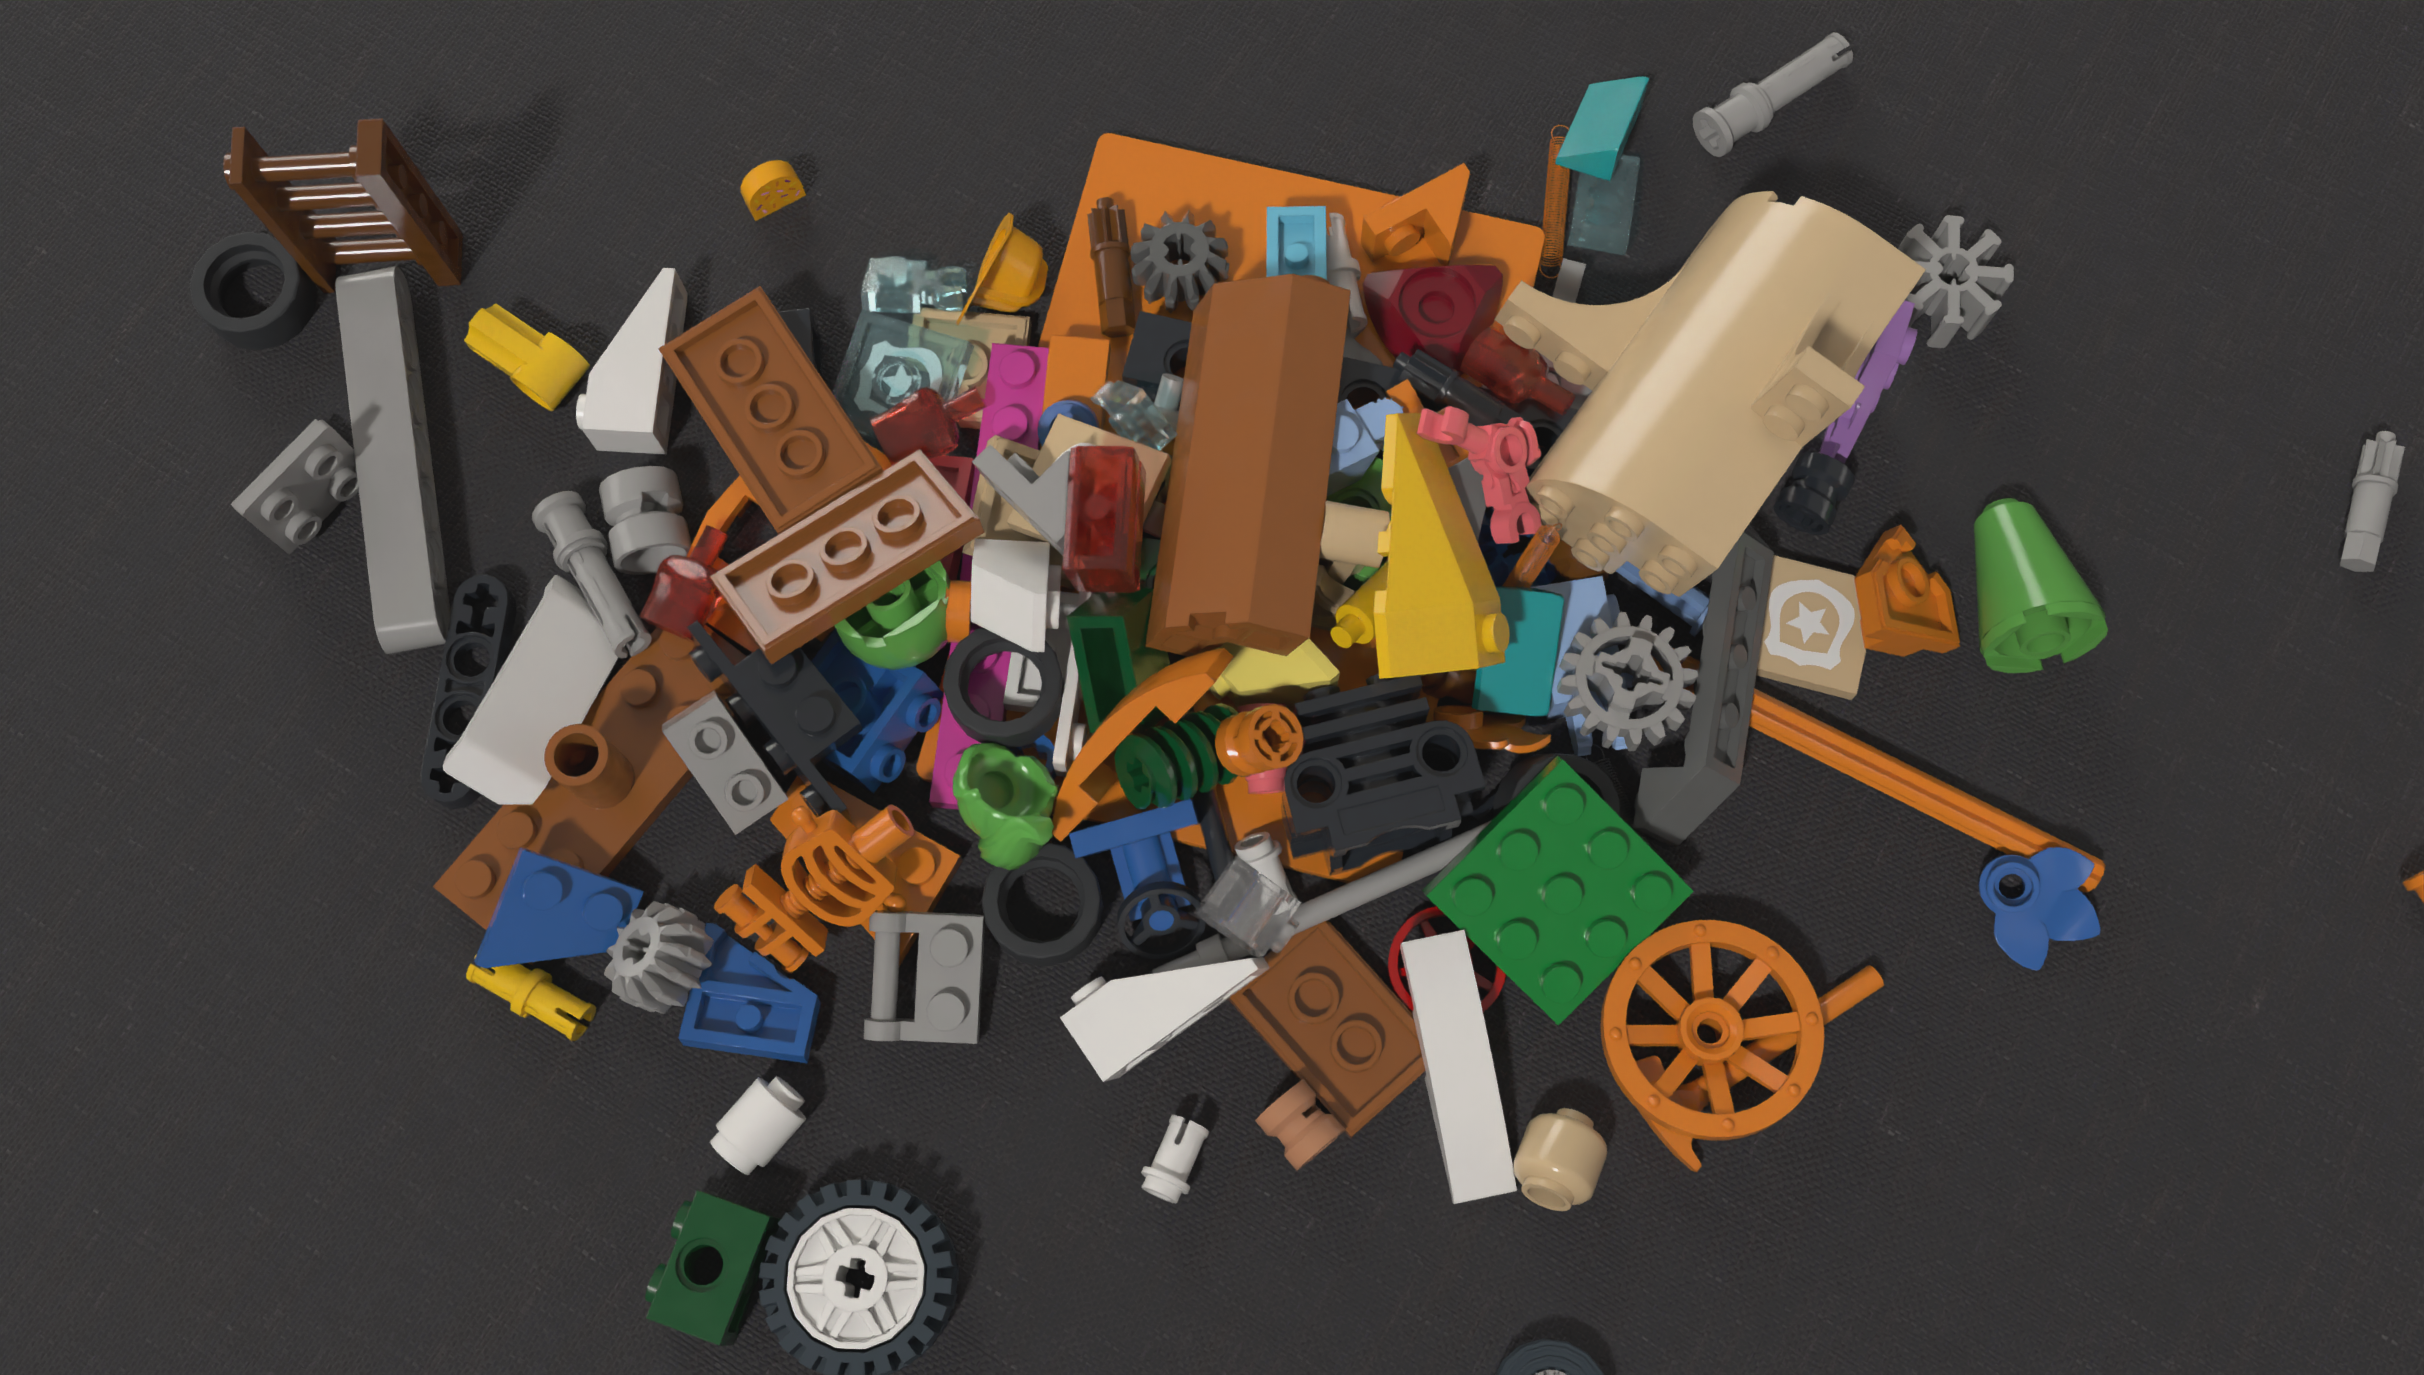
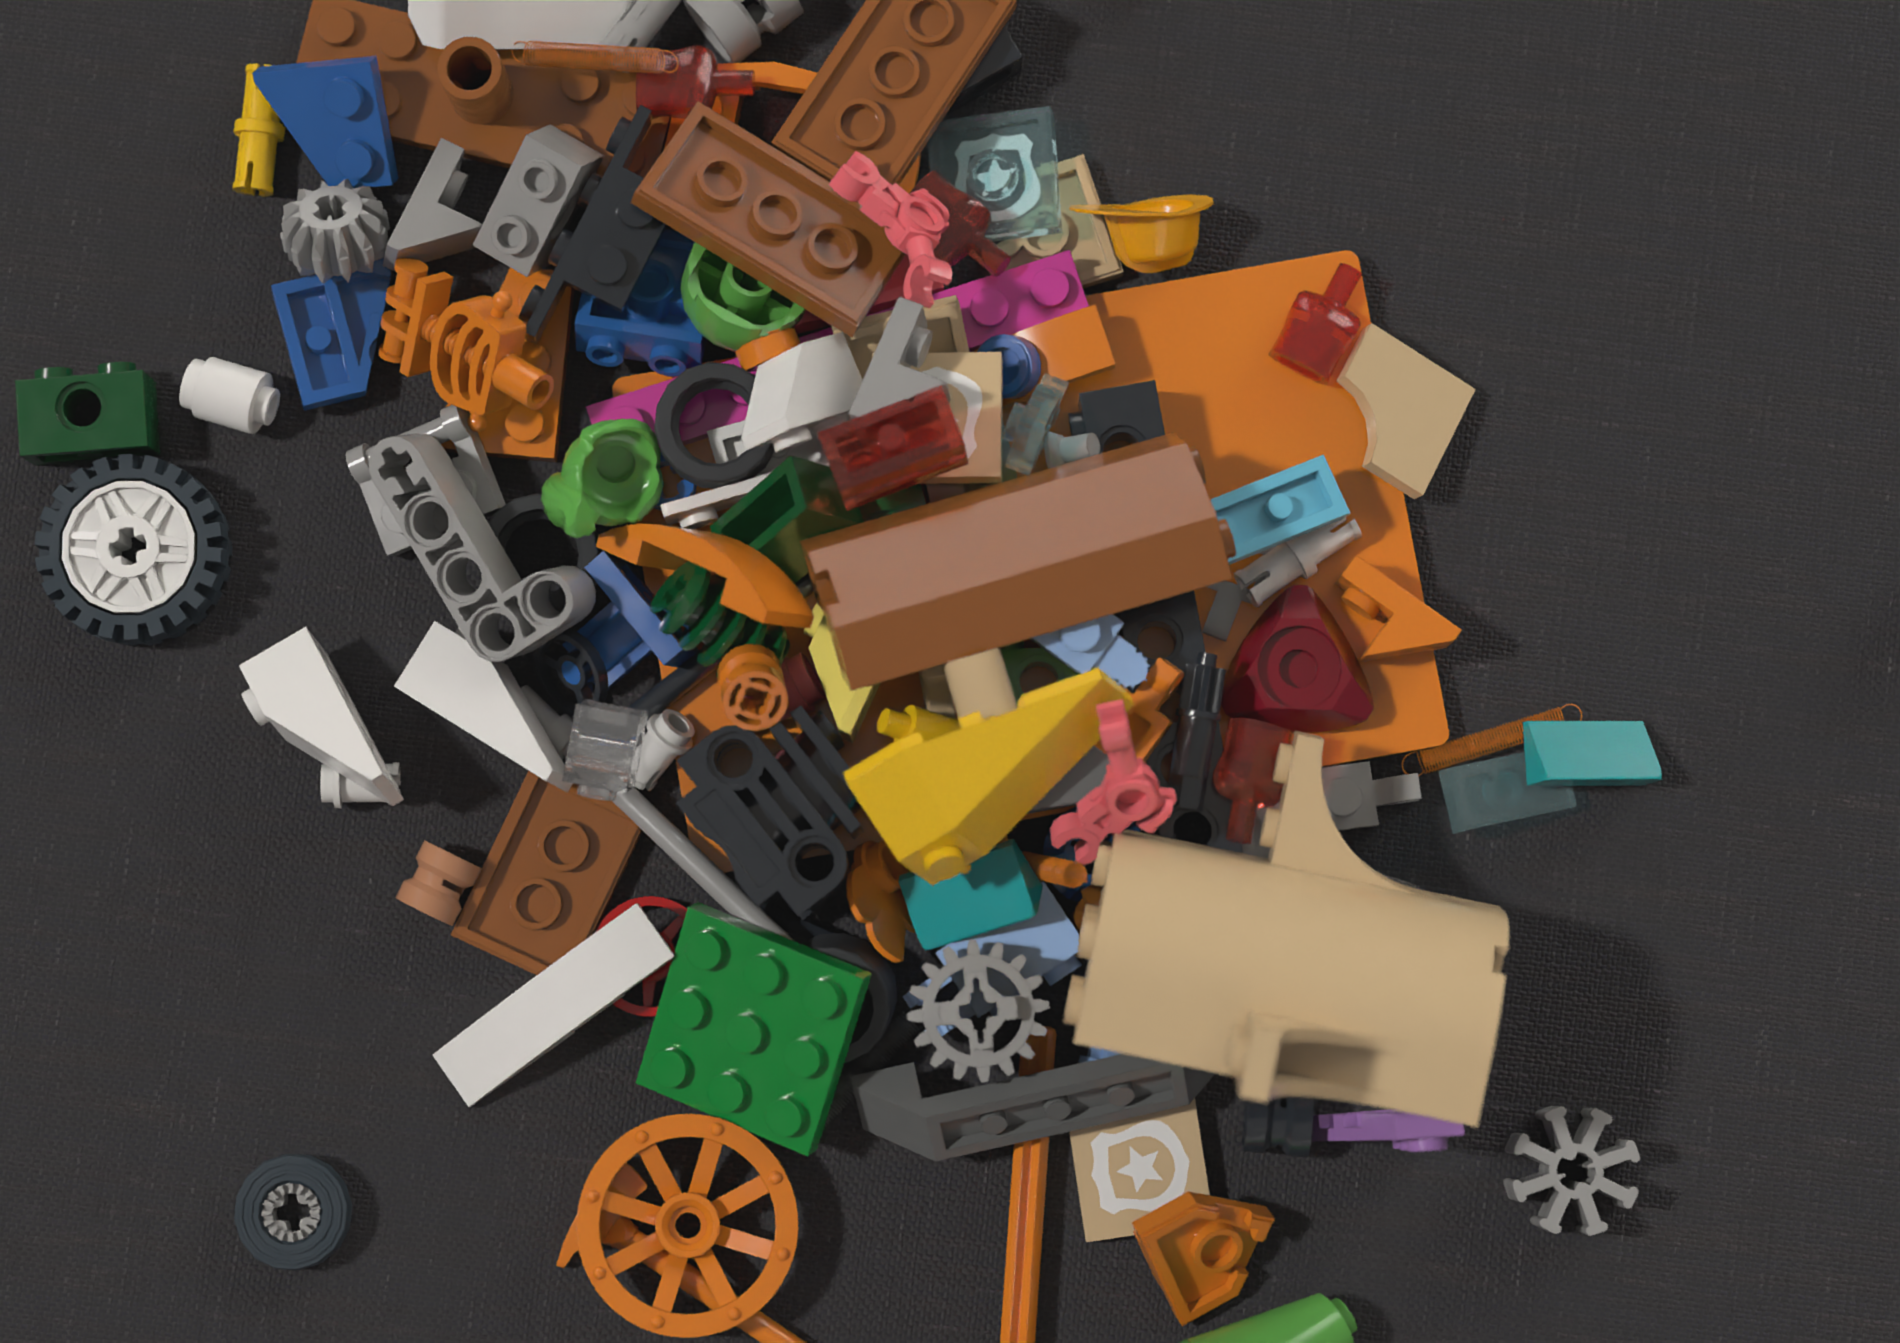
camera: 65 degrees right, 10 degrees up
(625, 652) = (590, 57): none -> orange piece
(695, 868) = (429, 224): none -> light grey slope
(905, 285) = (1101, 133): clear light blue plate -> none
(906, 441) = (910, 221): none -> coral piece
(1003, 946) = (467, 538): none -> light grey beam
(1095, 1167) = (311, 709): none -> white slope
(1112, 269) = (1204, 329): reddish brown piece -> none
(1154, 180) = (1319, 328): none -> clear red piece
(1179, 242) = (1222, 376): dark grey gear -> none
(1253, 144) = (1407, 408): none -> tan tile
(1560, 1159) = (509, 1133): tan head -> none
(1753, 104) = (1688, 899): light grey pin -> none

